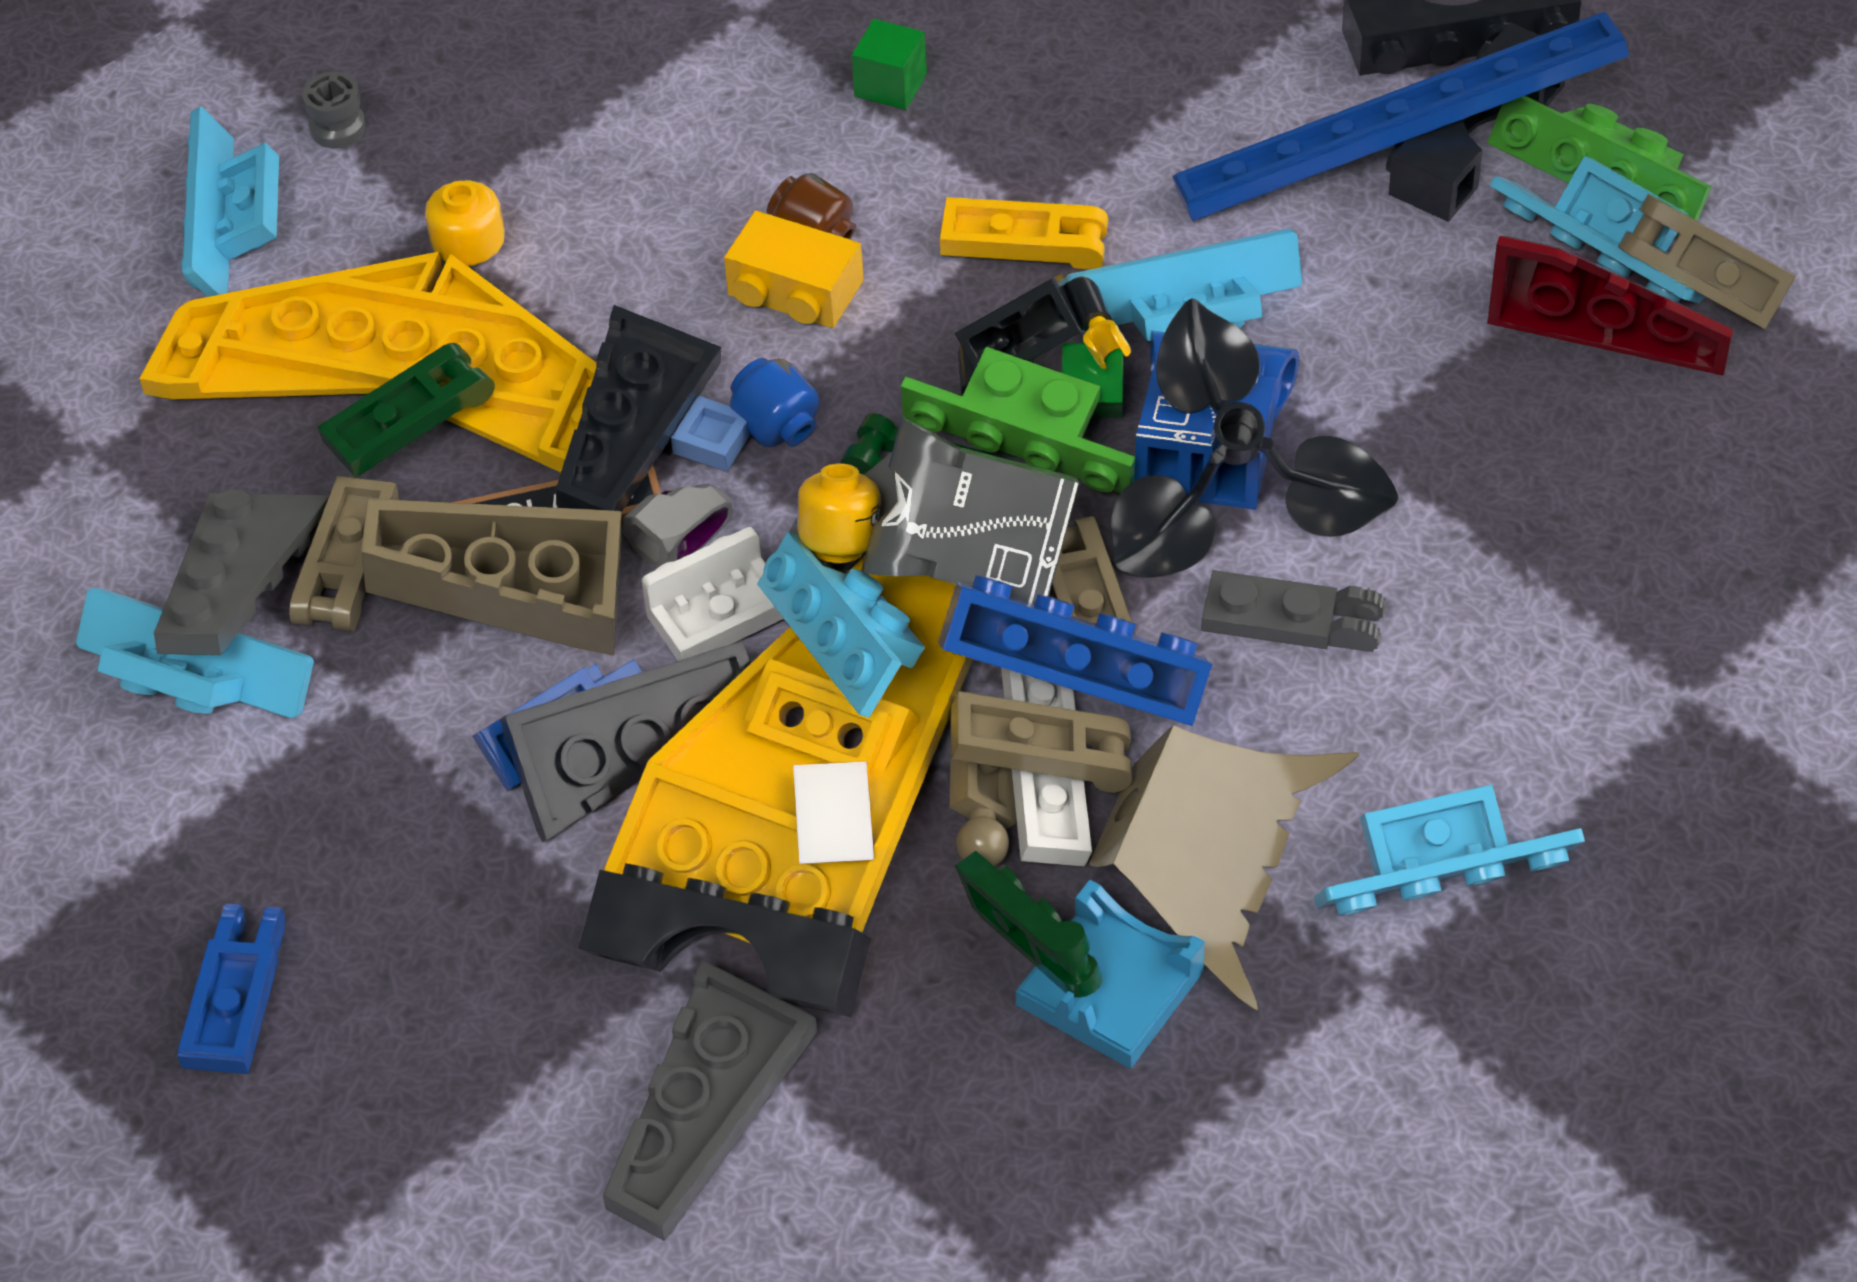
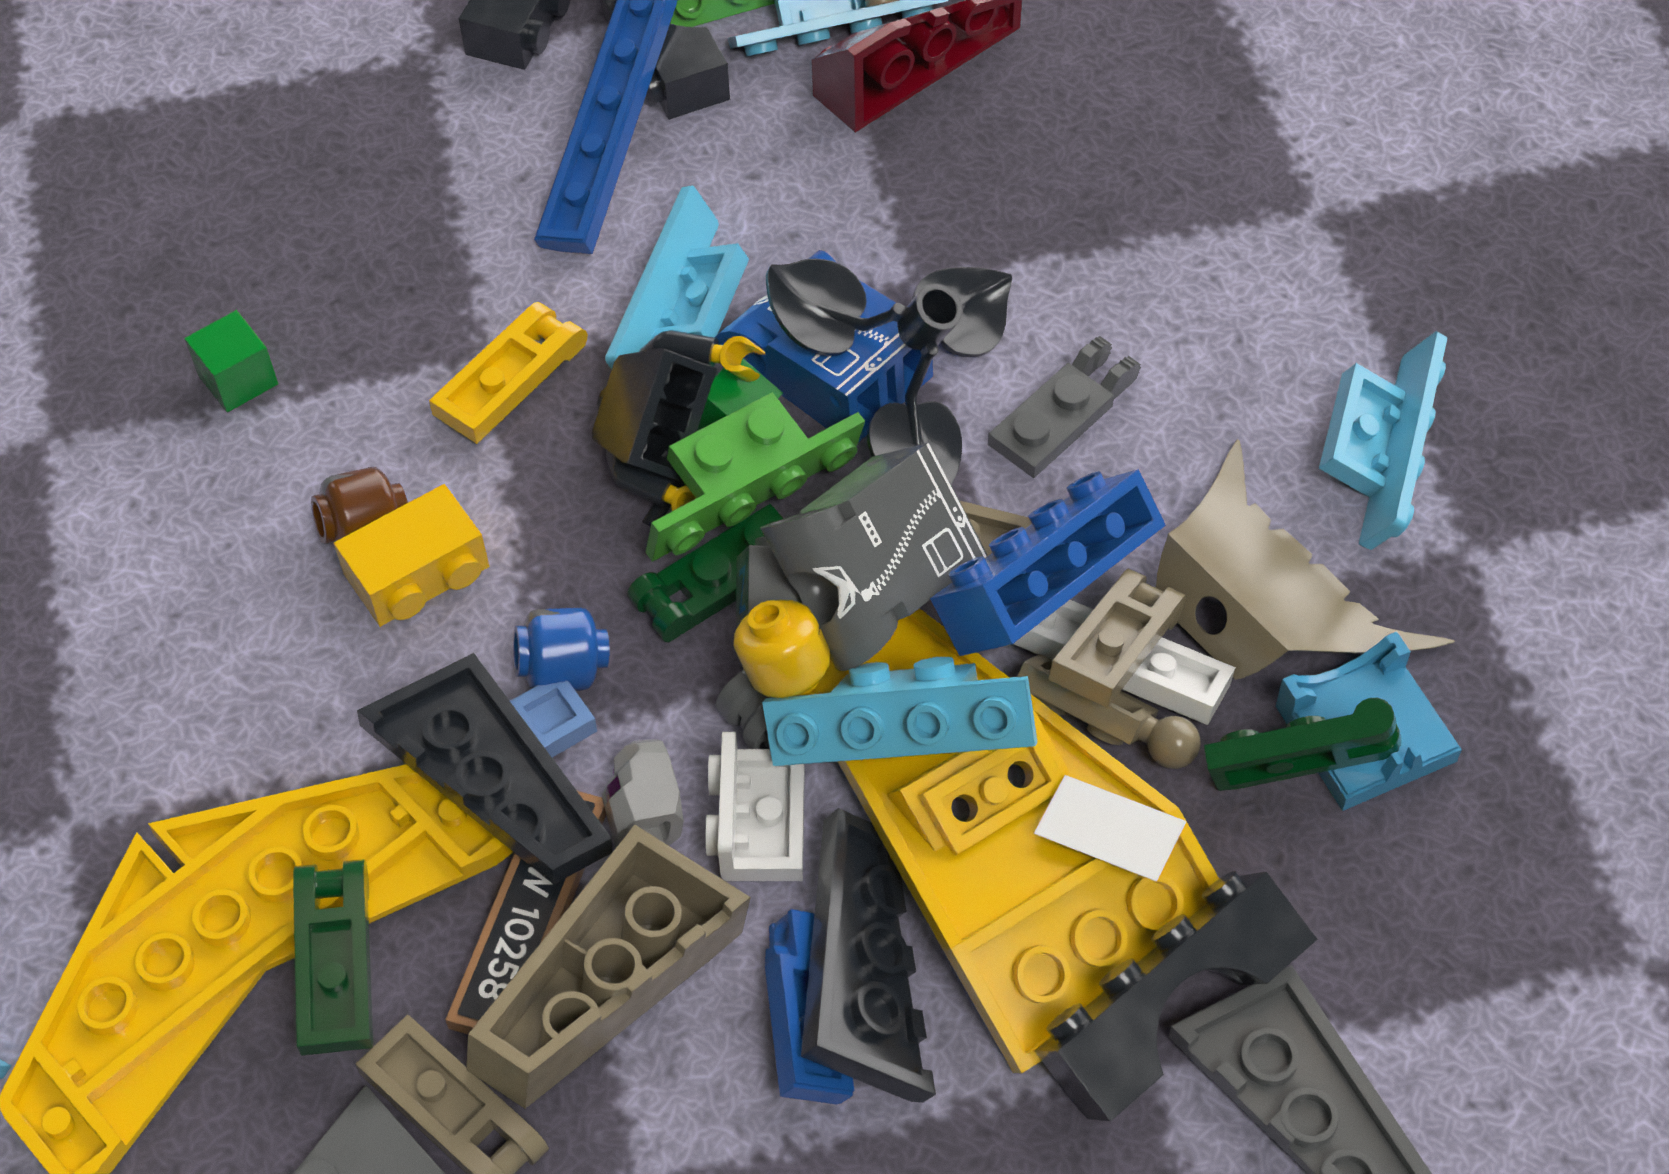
camera: 60 degrees left, 5 degrees up
(465, 221) = (122, 790): yellow head -> none

